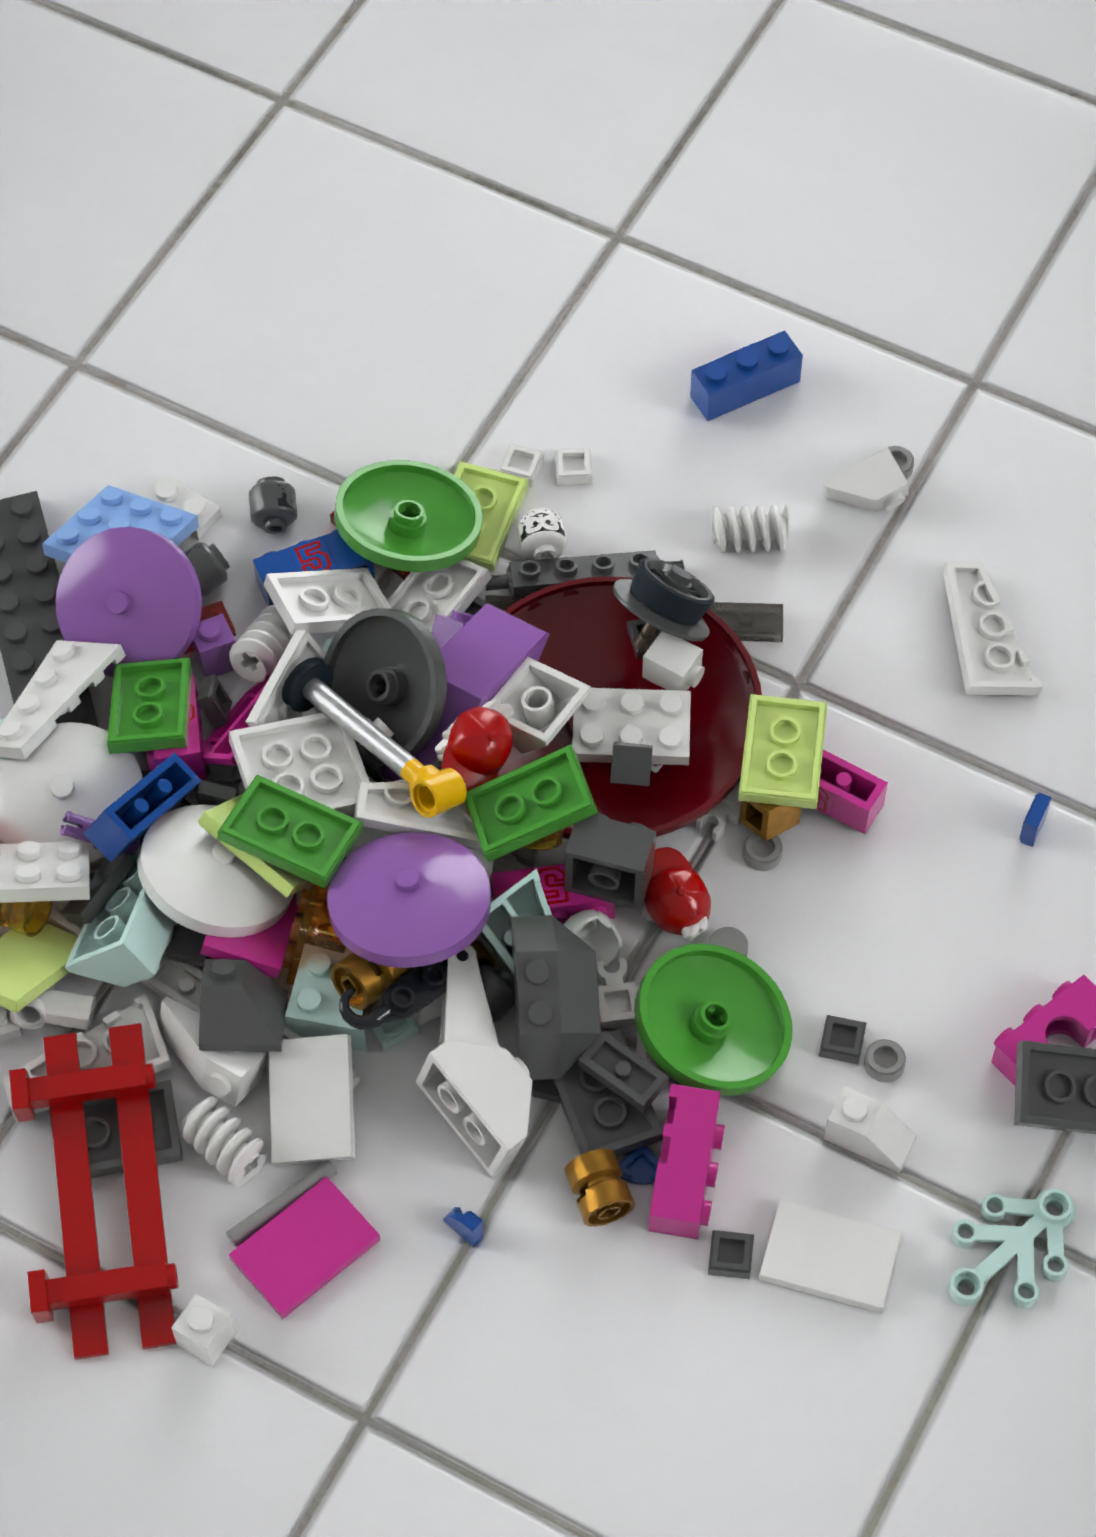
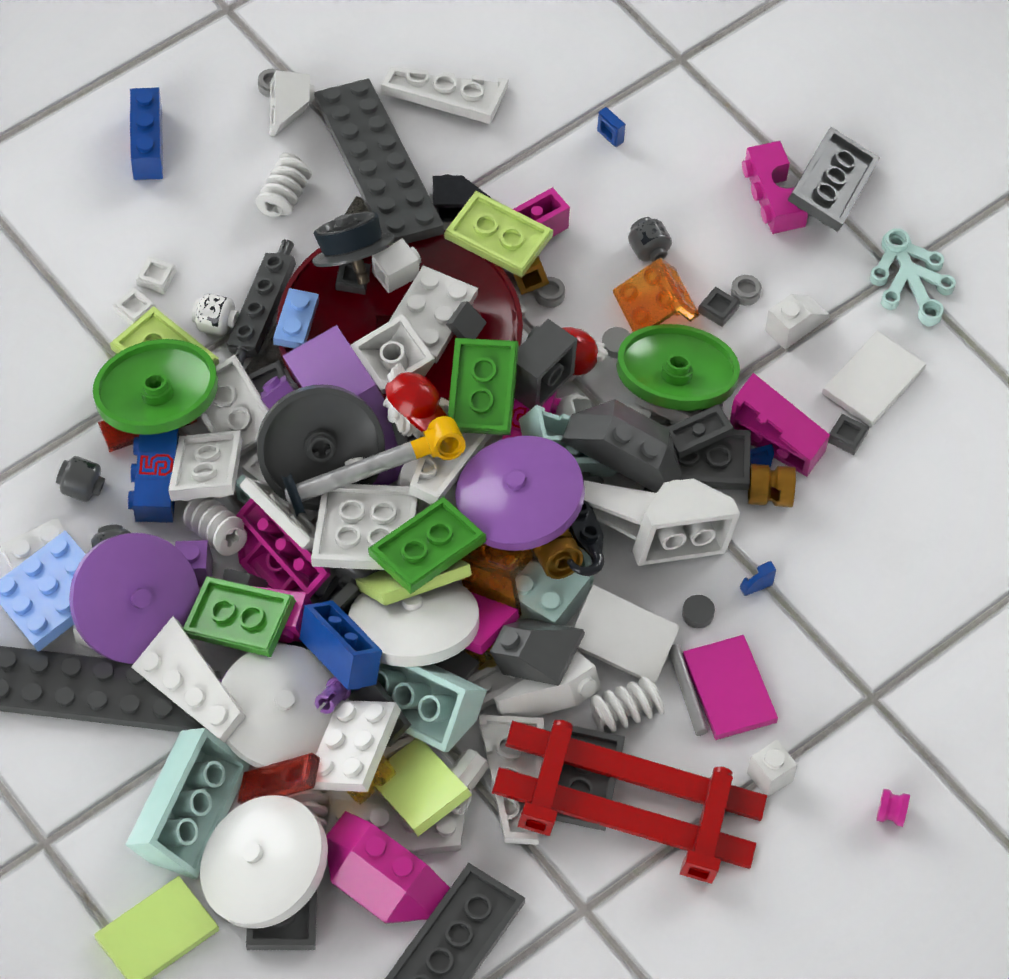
camera: 70 degrees left, 0 degrees up
(209, 1489) = (893, 807): none -> dark pink wheel
(393, 1174) = (698, 611): none -> dark grey tile
(555, 601) = (296, 318): none -> light blue plate
(815, 963) = (654, 296): none -> clear orange bracket
(826, 600) = (378, 161): none -> dark grey plate
(841, 691) = (451, 195): none -> black slope
(888, 922) = (649, 239): none -> dark grey head

